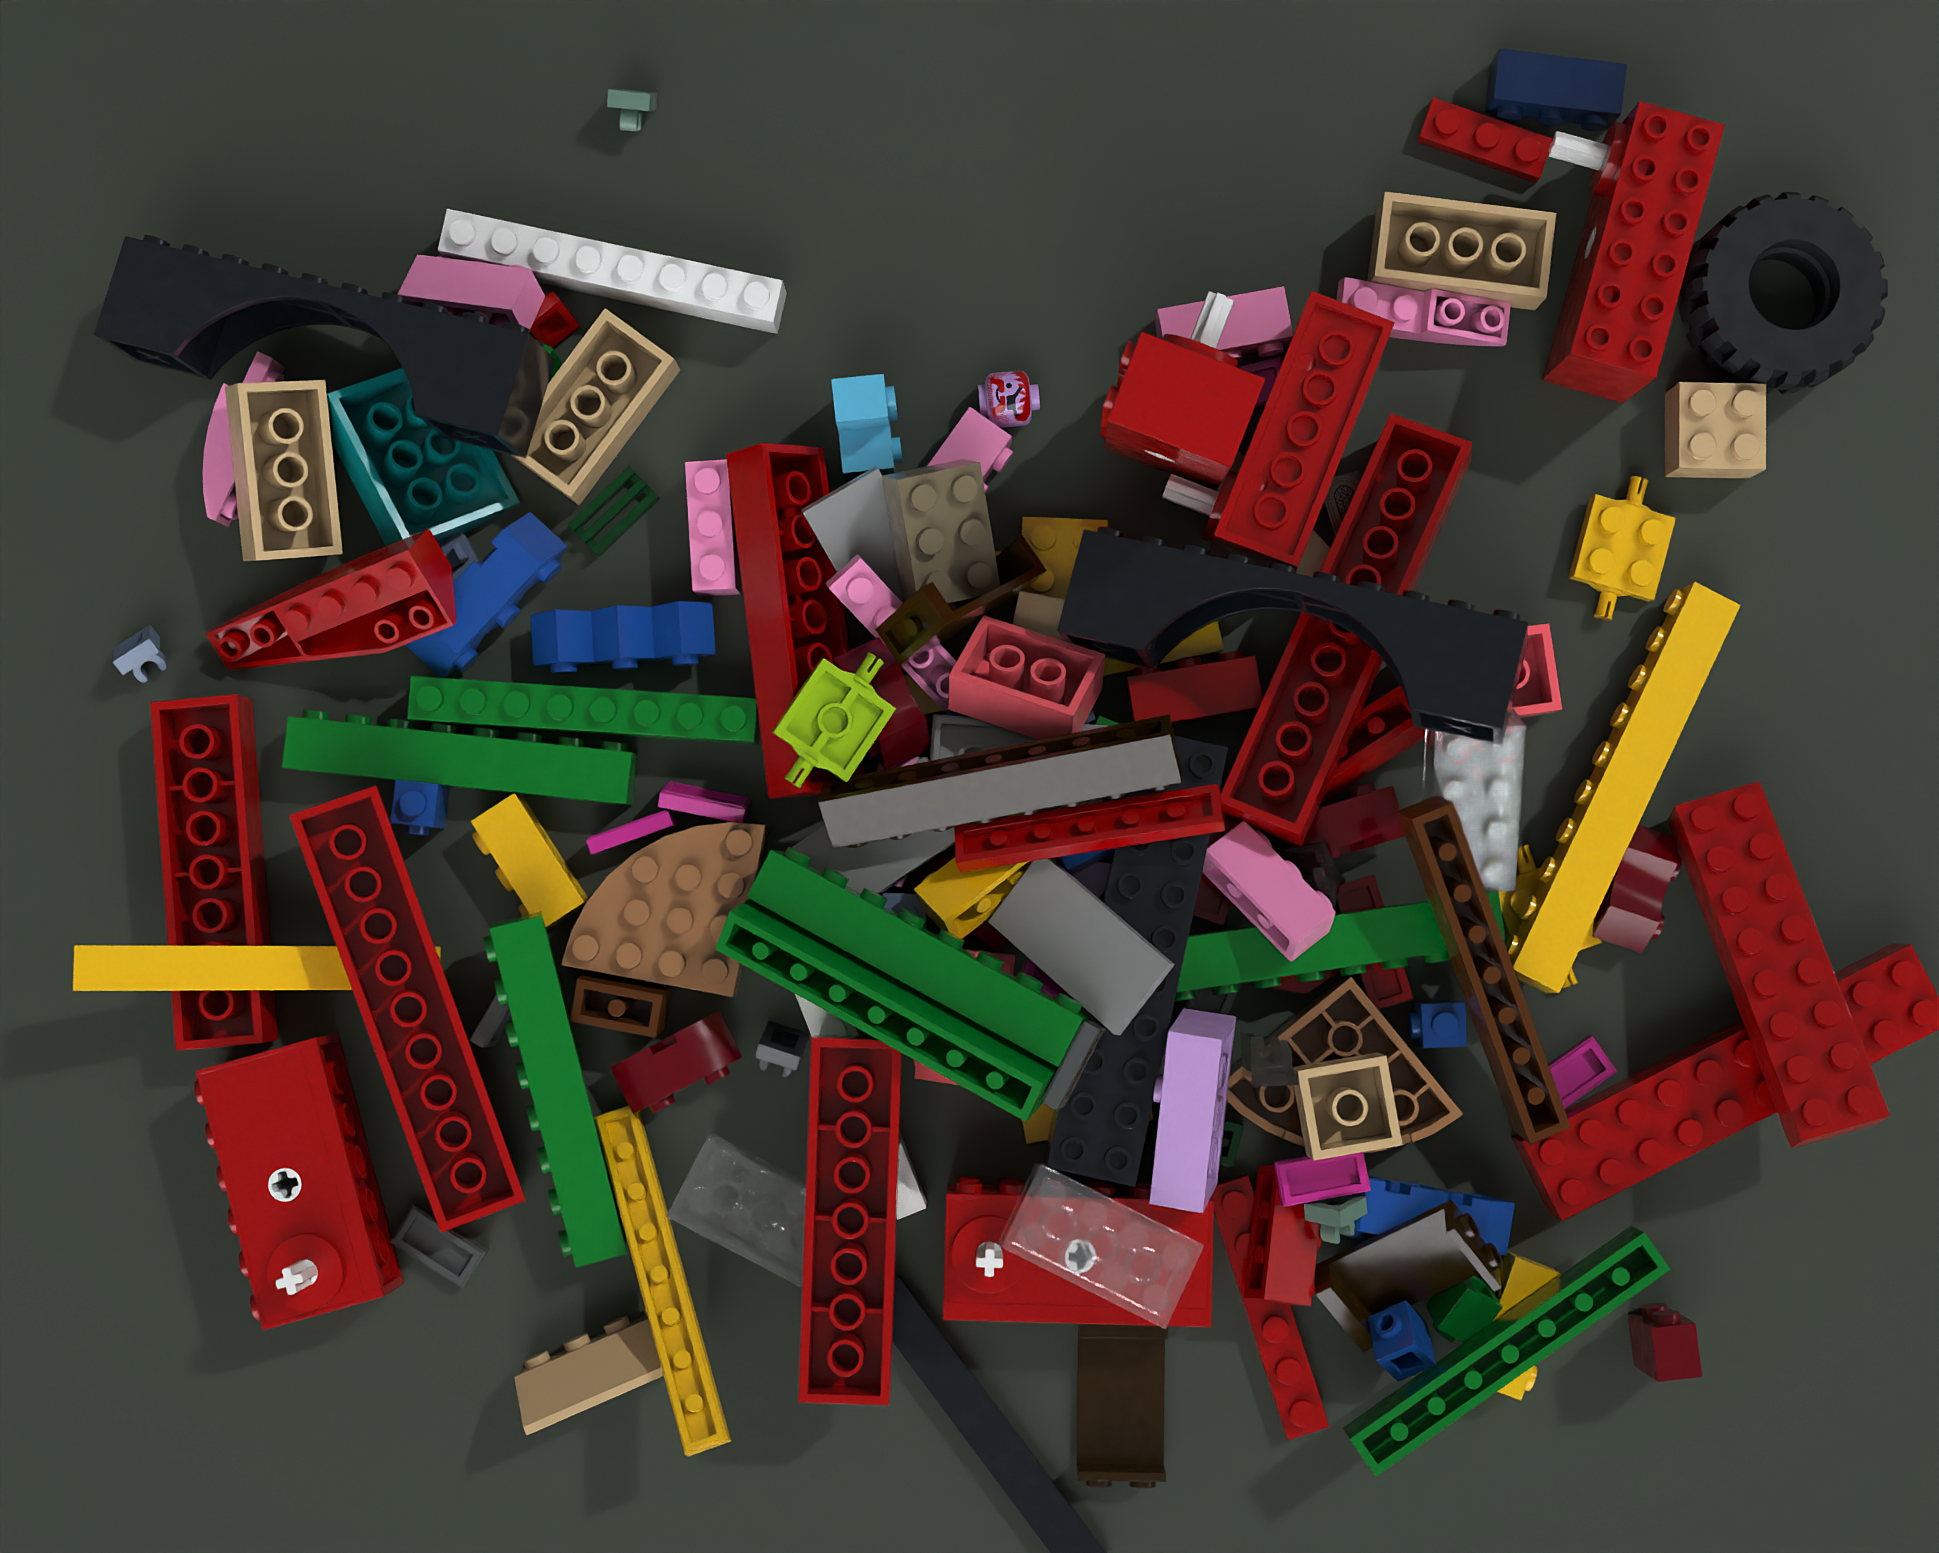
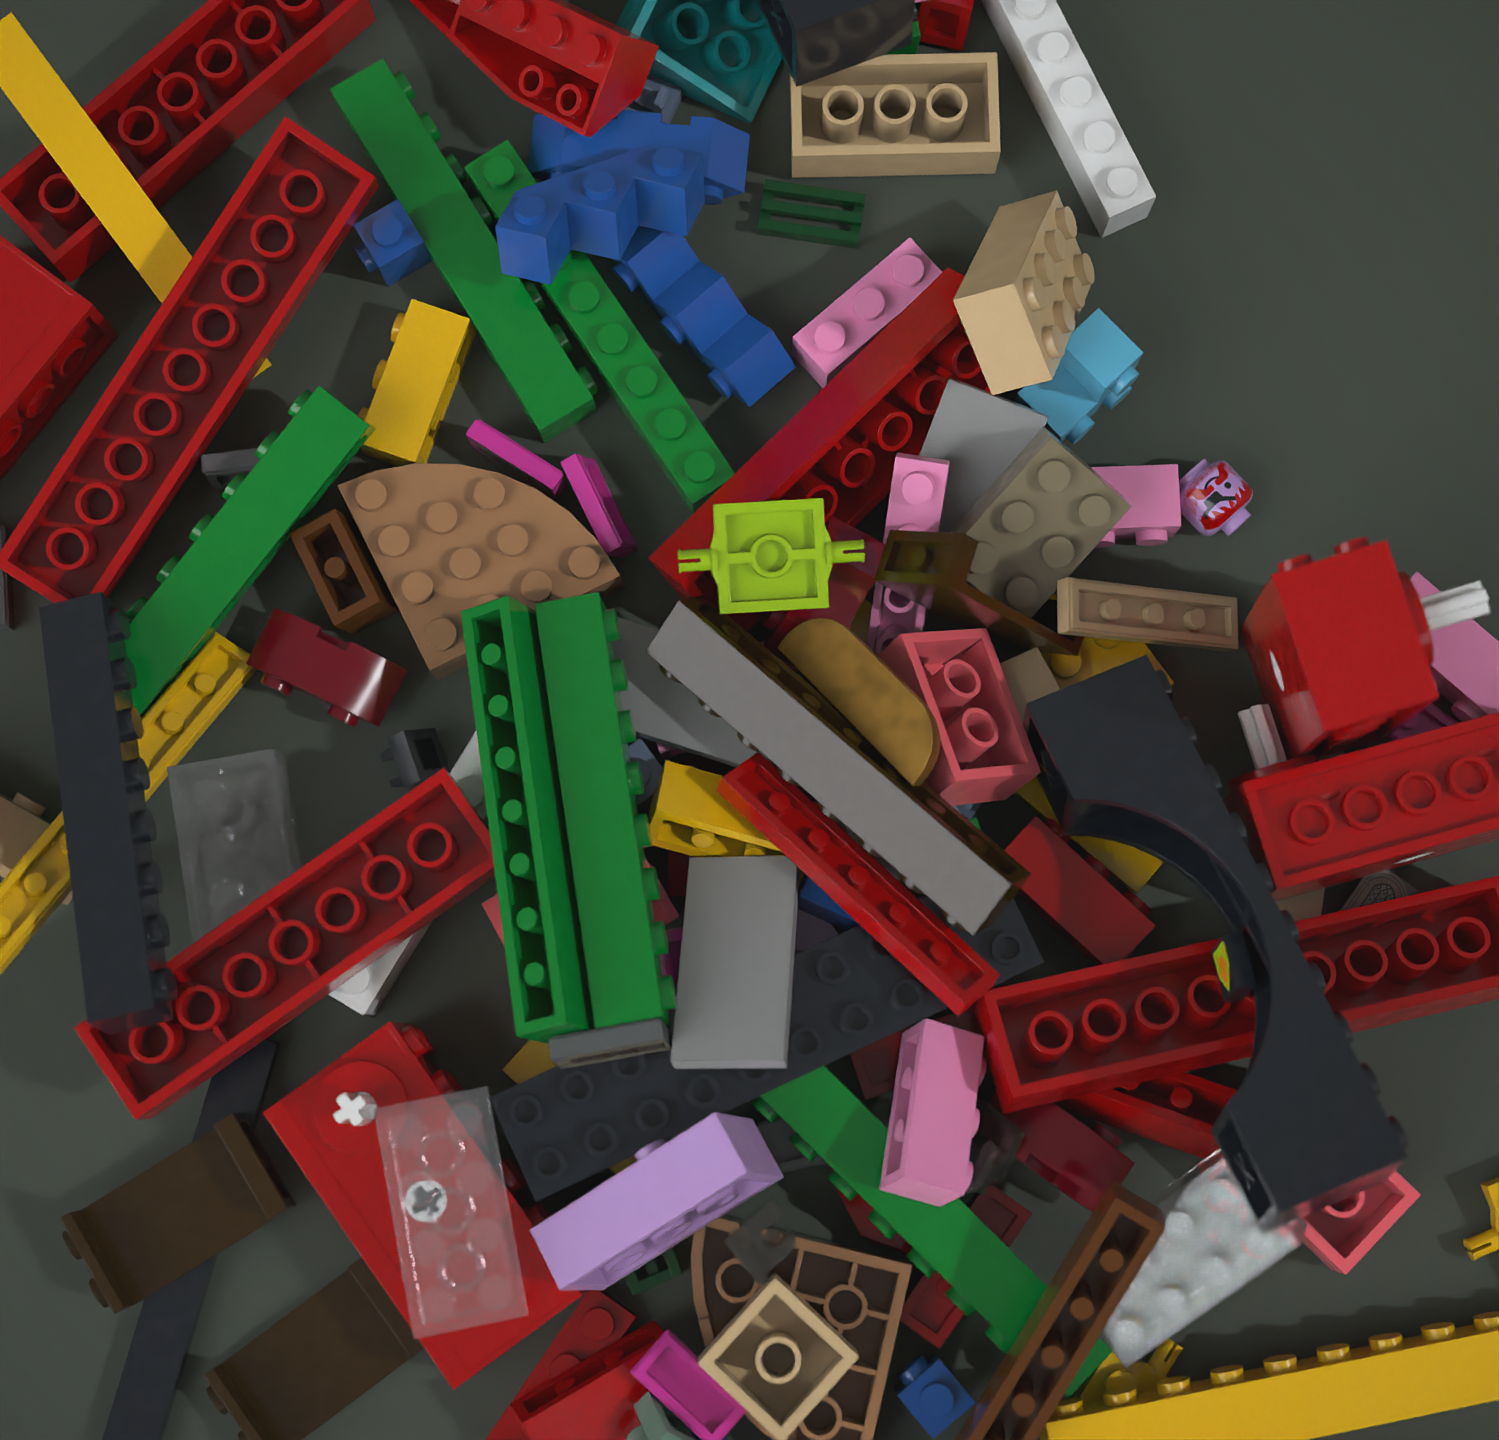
camera: 50 degrees right, 5 degrees down
(511, 653) = (599, 209): none -> blue brick
(671, 1278) = (107, 815): none -> black brick
(784, 419) = (1024, 292): none -> tan brick
(961, 1422) = (177, 1214): none -> dark brown panel
(972, 728) = (867, 694): none -> pearl gold brick
(1053, 504) = (1146, 615): none -> tan tile
(1323, 630) = (1233, 967): none -> black tile

